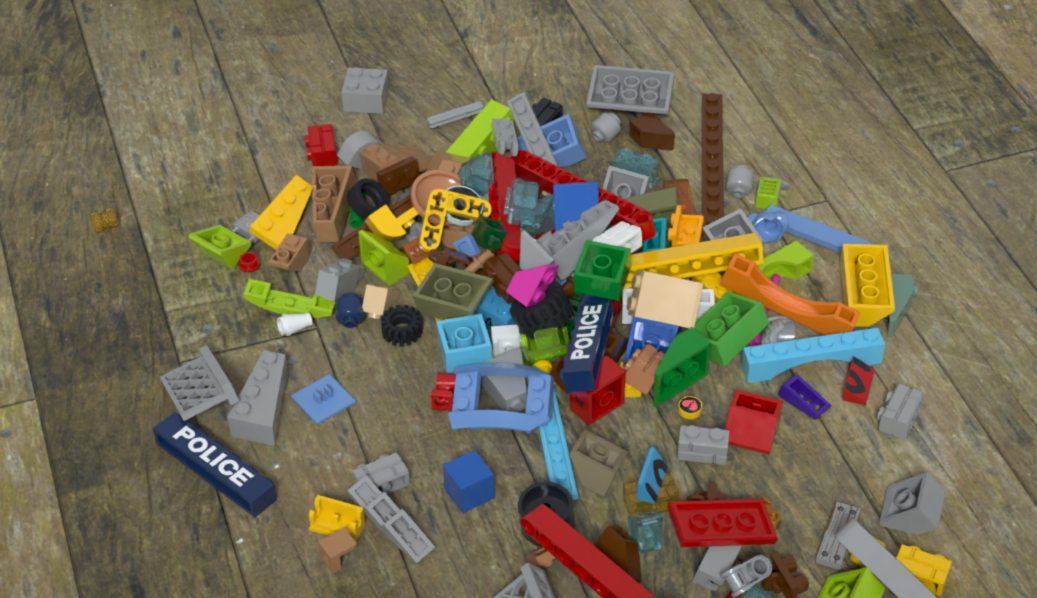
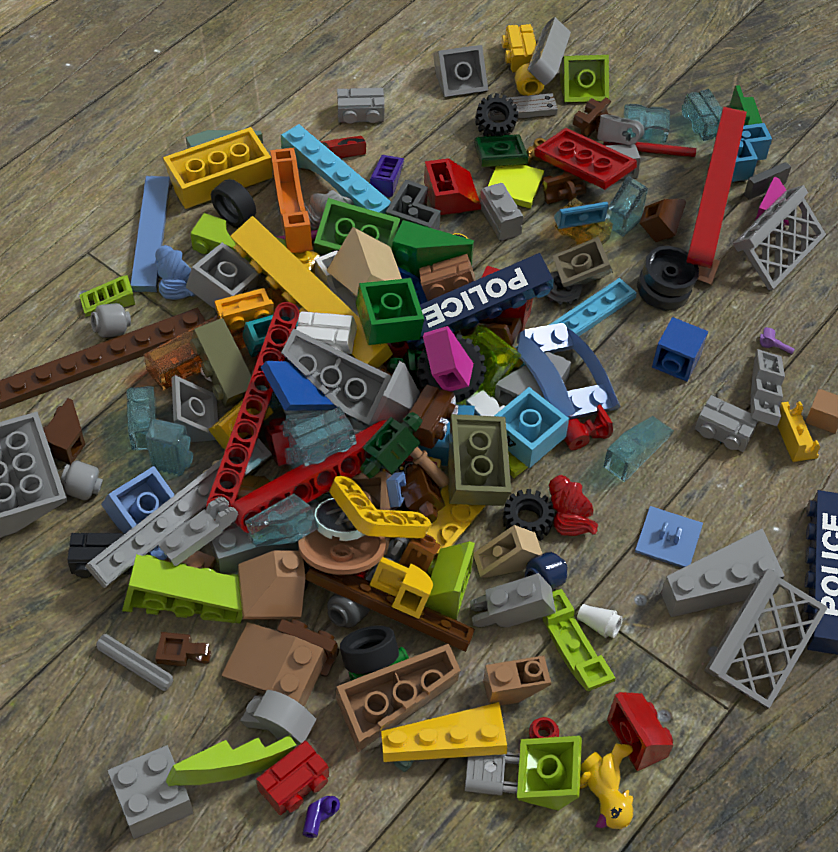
camera: 125 degrees left, 10 degrees up
(193, 269) = (603, 779): none -> yellow animal
(204, 293) = (637, 725): none -> red slope
(295, 151) = (318, 812): none -> dark purple arm
(348, 110) = (224, 763): none -> lime slope
(387, 347) = (571, 507): none -> red hair
(407, 414) = (635, 447): none -> clear light blue slope
(438, 561) = (768, 340): none -> medium lavender hand
(445, 130) = (178, 648): none -> reddish brown plate
(595, 161) = (169, 447): none -> clear light blue brick
(731, 375) = (411, 206): none -> dark grey brick
(739, 478) = (520, 182): none -> neon yellow tile
(783, 484) = (500, 150): none -> dark green tile
(808, 268) = (233, 202): none -> black tyre
(830, 506) = (501, 105): none -> black tyre

